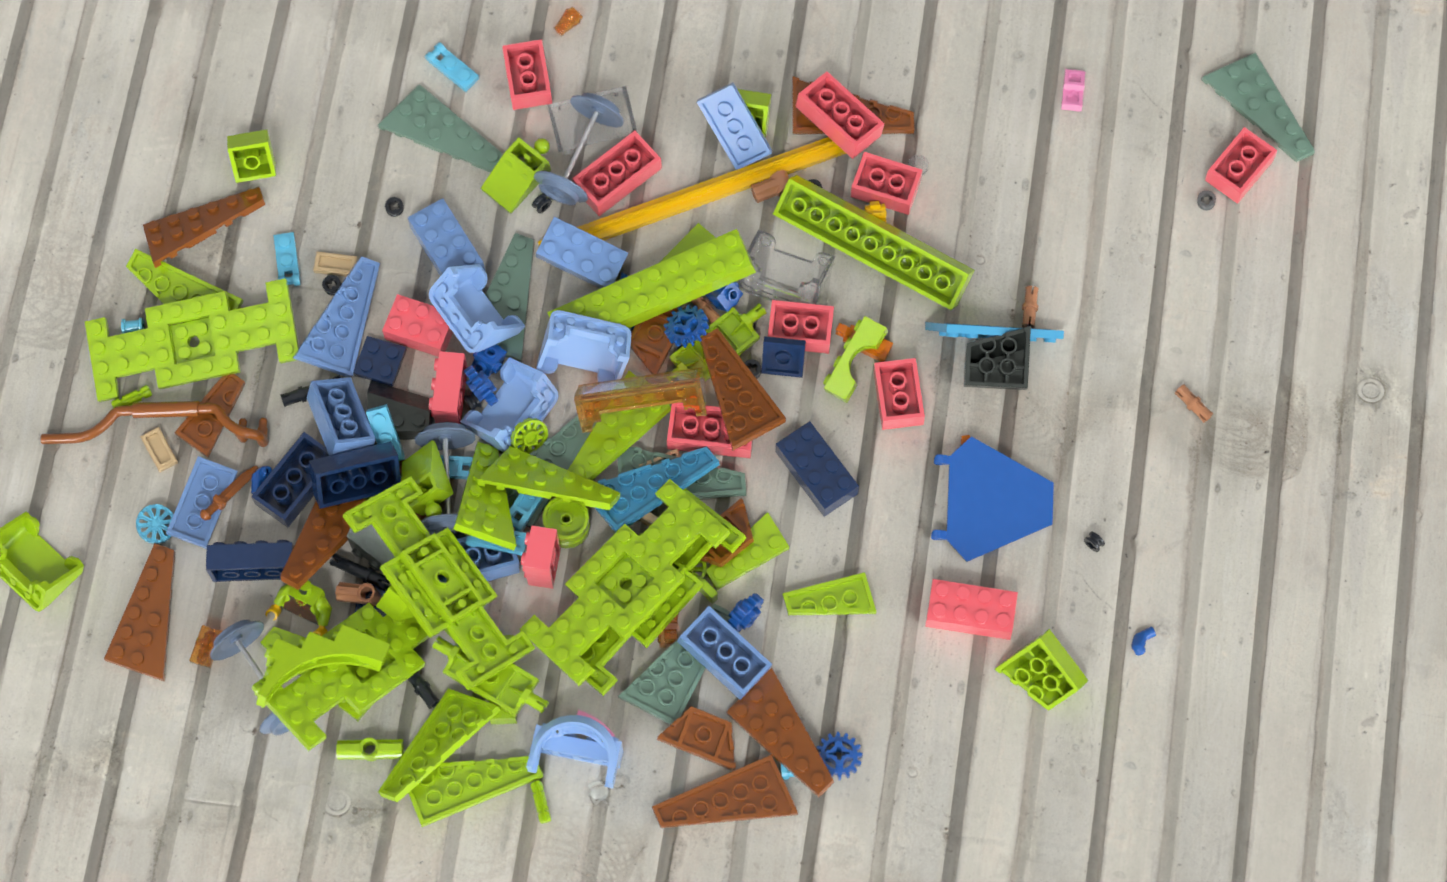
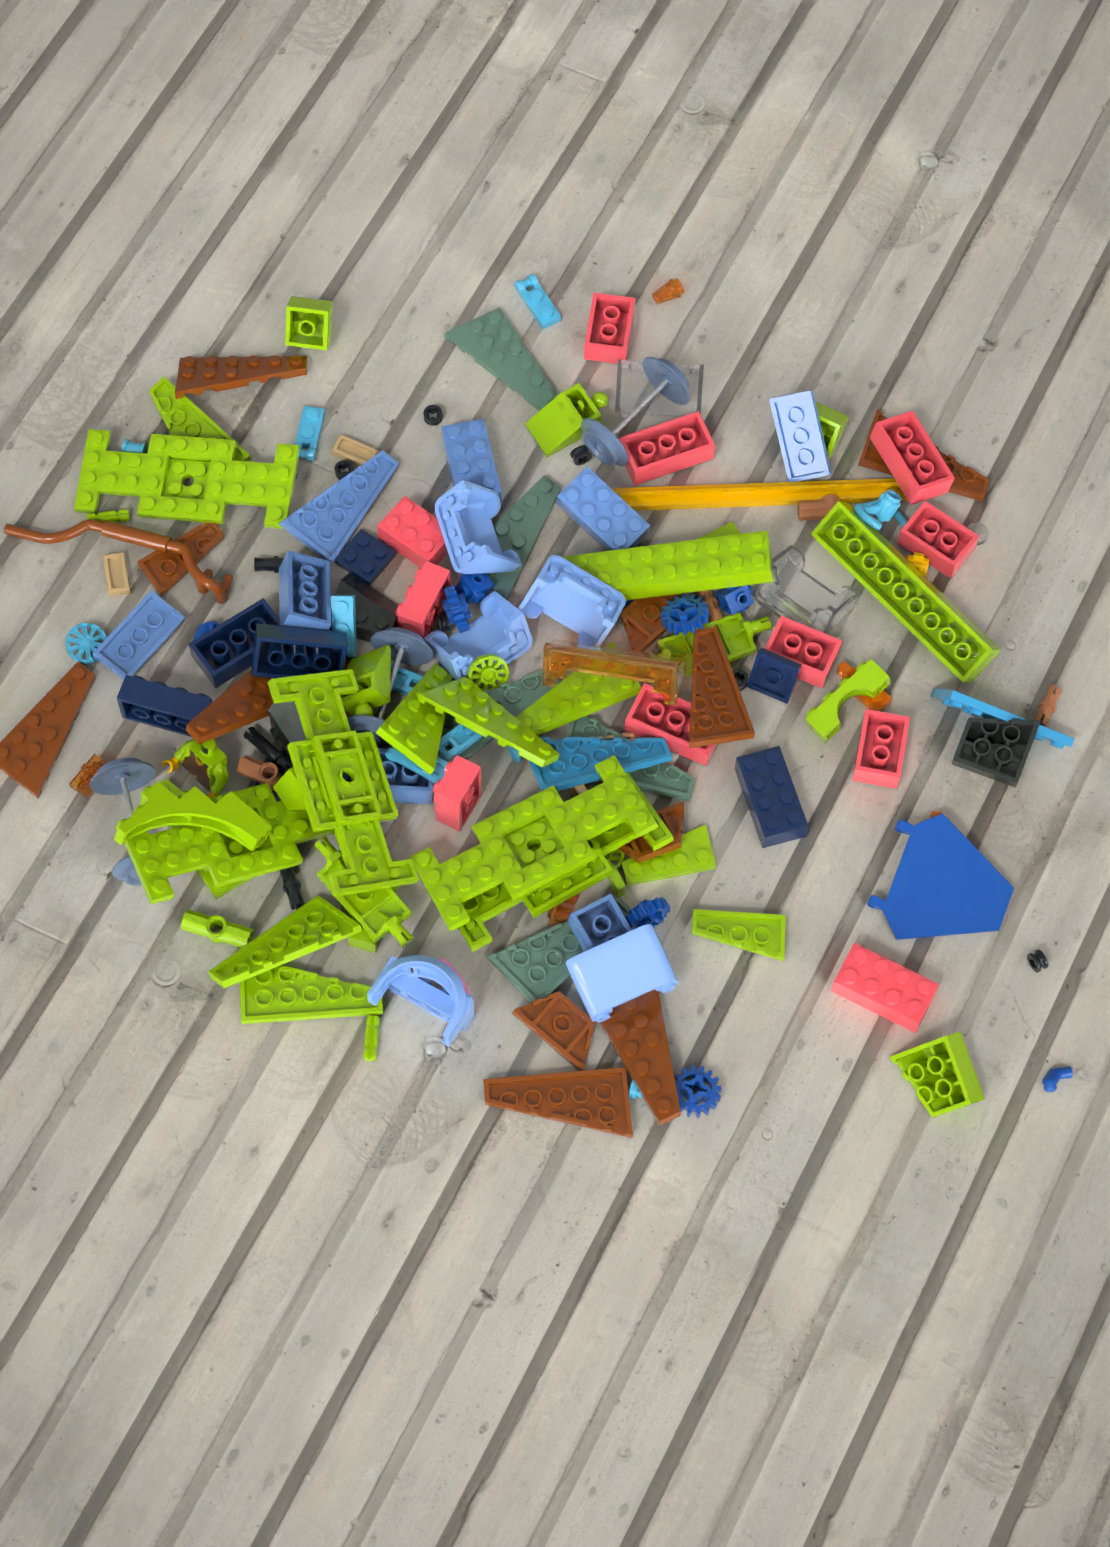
camera: 15 degrees right, 5 degrees down
(219, 502) = (156, 640): dark orange sword -> none
(570, 533) = (499, 768): lime wheel -> none
(742, 673) = (621, 971): none -> light blue windscreen
(829, 172) = (883, 510): none -> medium azure piece

